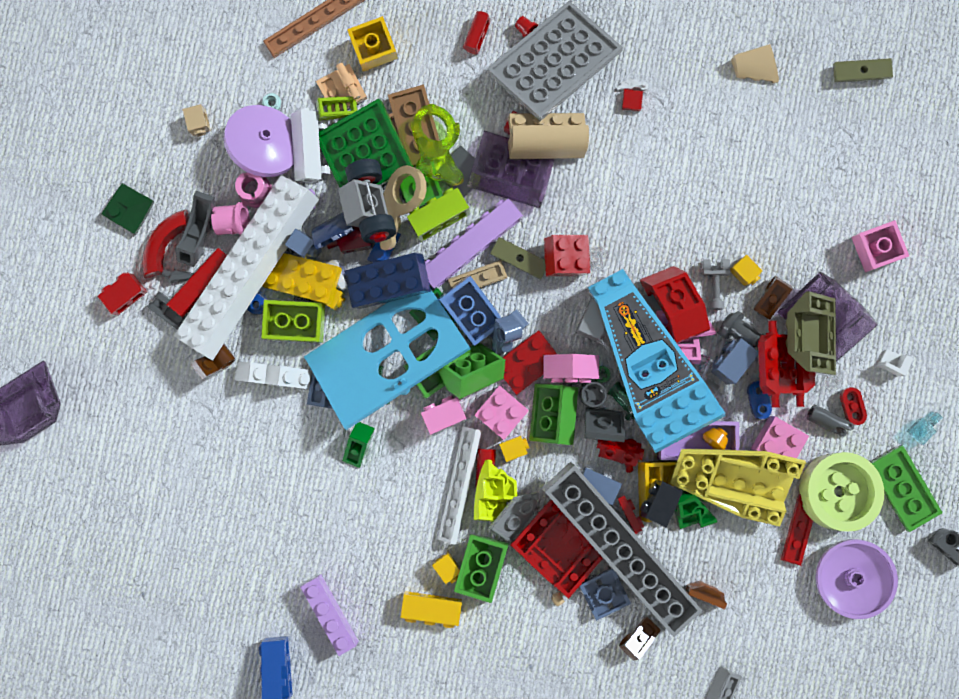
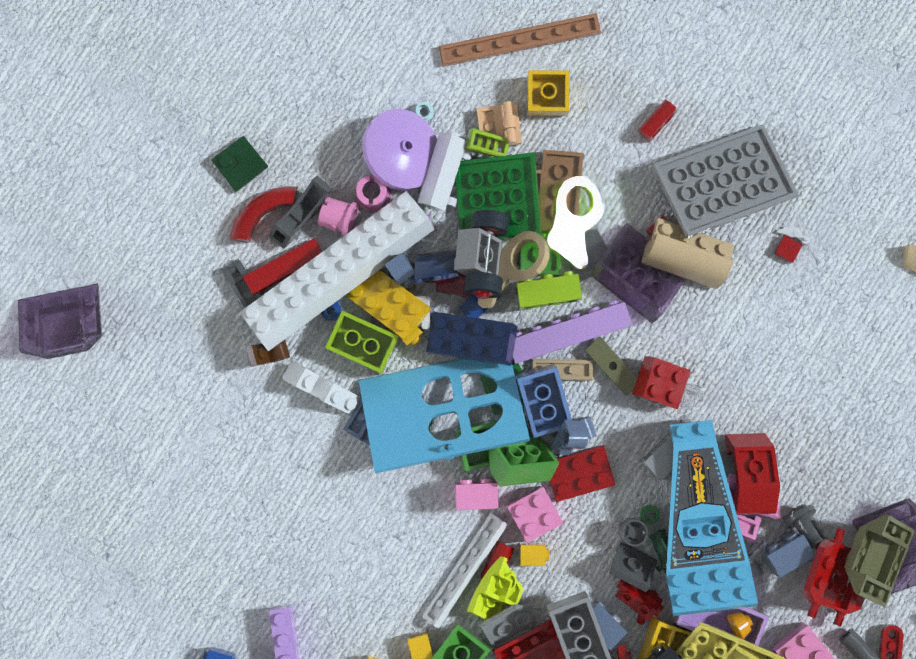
camera: 20 degrees right, 0 degrees up
(122, 293) = (201, 247): red brick -> none
(177, 276) = (263, 250): dark grey bar -> none
(196, 120) = (342, 102): tan brick -> none
(358, 444) = (379, 490): green slope -> none
(525, 26) = (709, 133): red piece -> none
(554, 414) = (586, 536): bright green slope -> none
(571, 368) = (621, 497): bright pink brick -> none
(716, 303) = (793, 487): light grey bar -> none
(746, 271) = (836, 467): yellow brick -> none
(758, 400) = (797, 602): blue plate -> none
(774, 296) = (852, 505): reddish brown plate -> none

